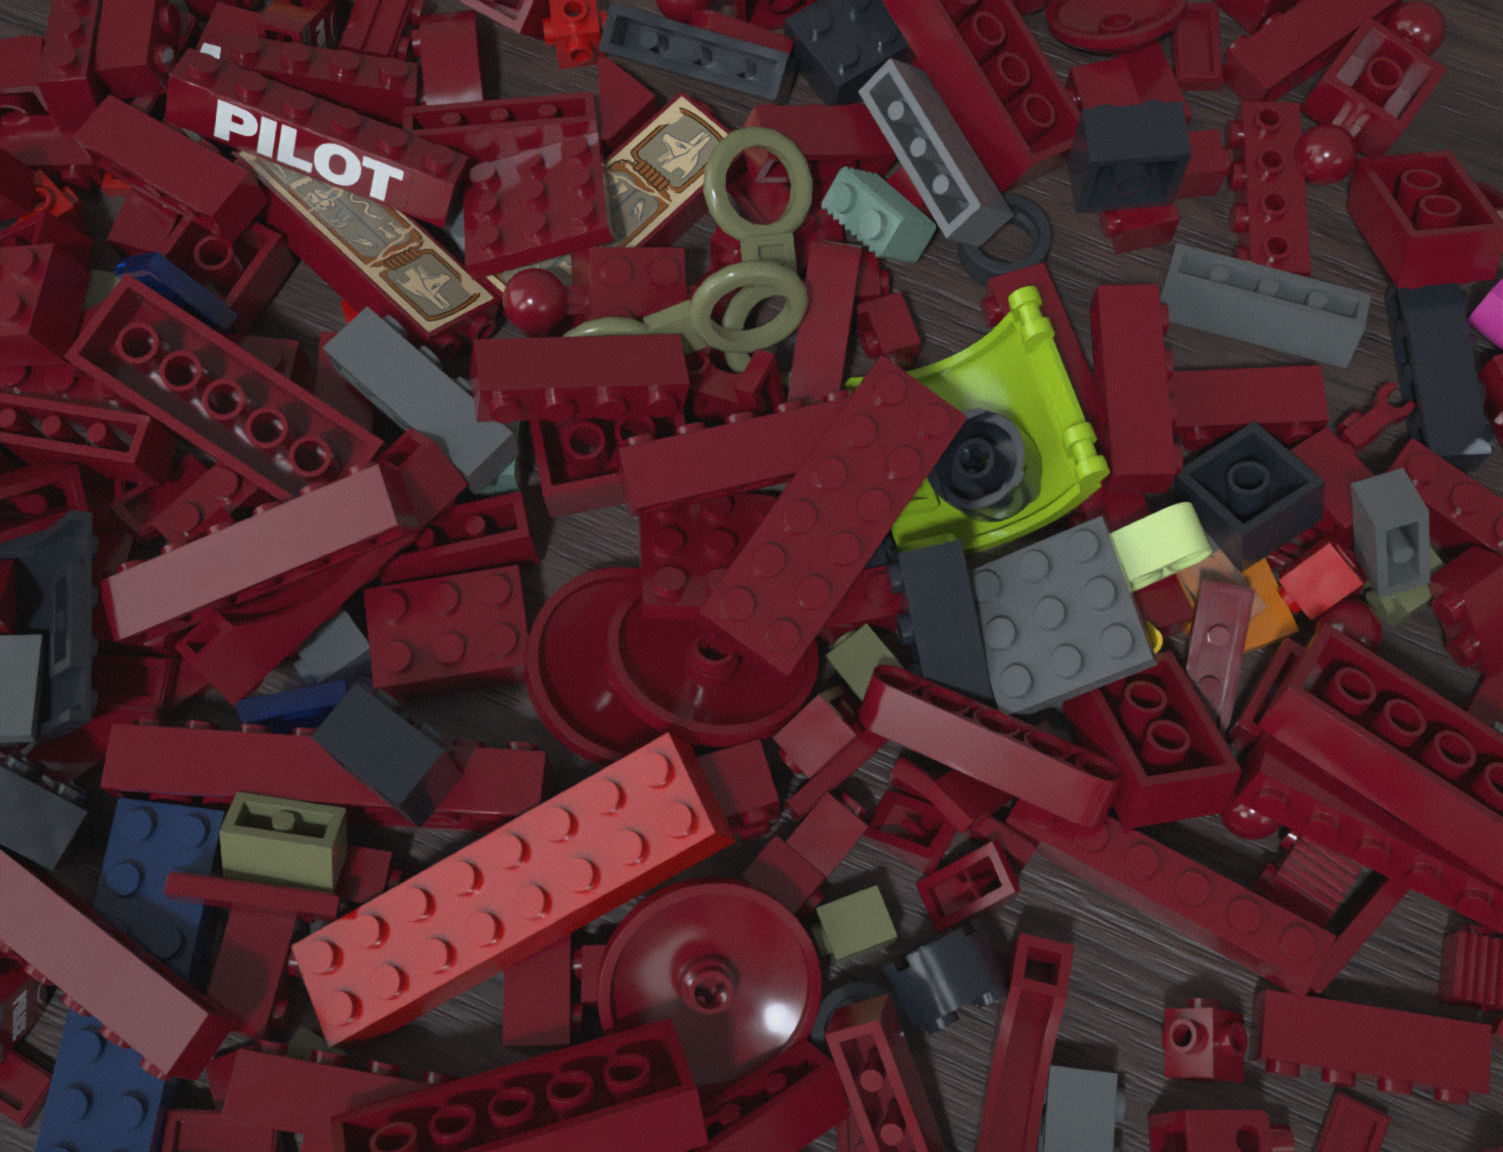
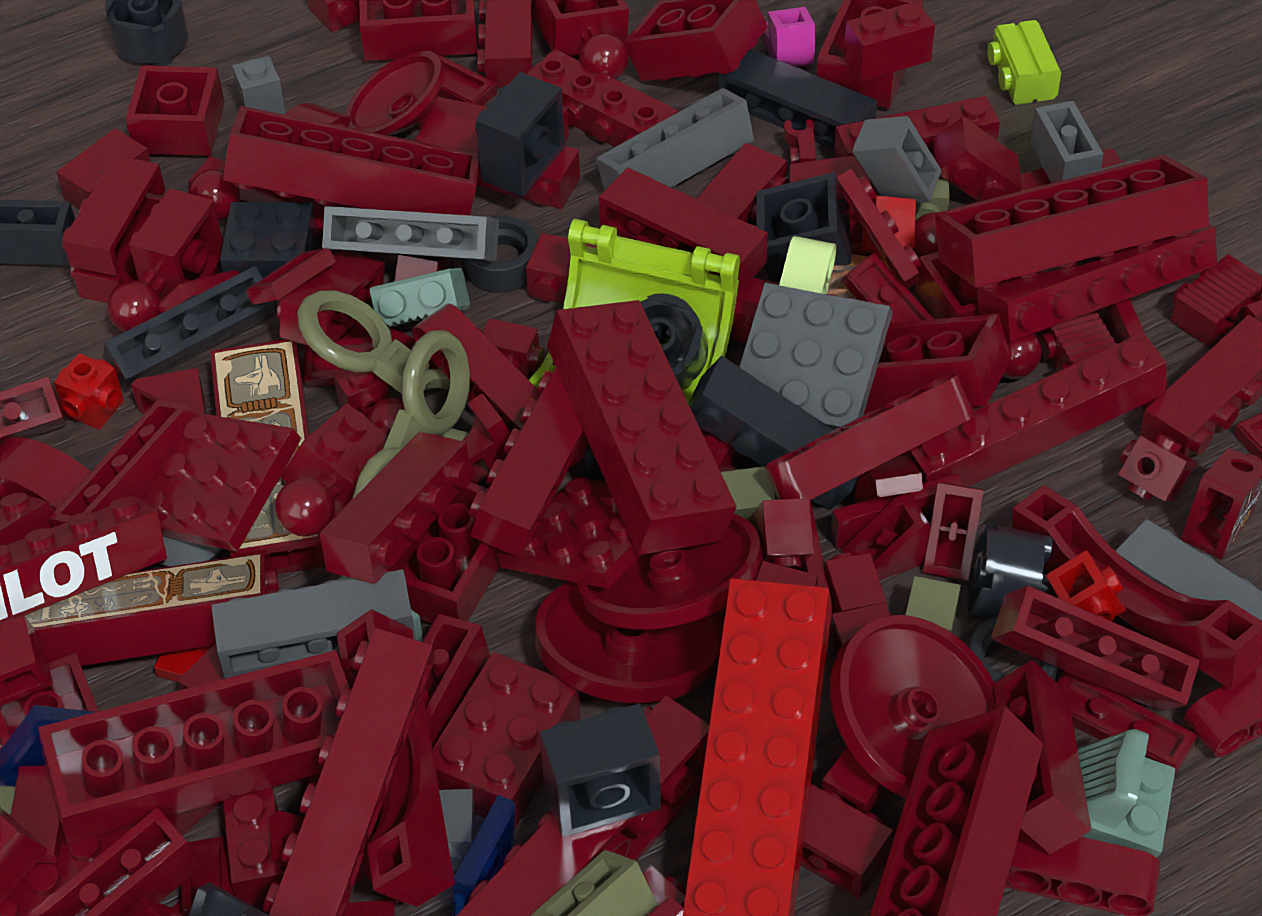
camera: 55 degrees left, 20 degrees down
(799, 91) = (290, 276): none -> dark red tile
(958, 1071) = (1088, 586): none -> red brick
(1286, 574) = (879, 227): none -> dark red plate

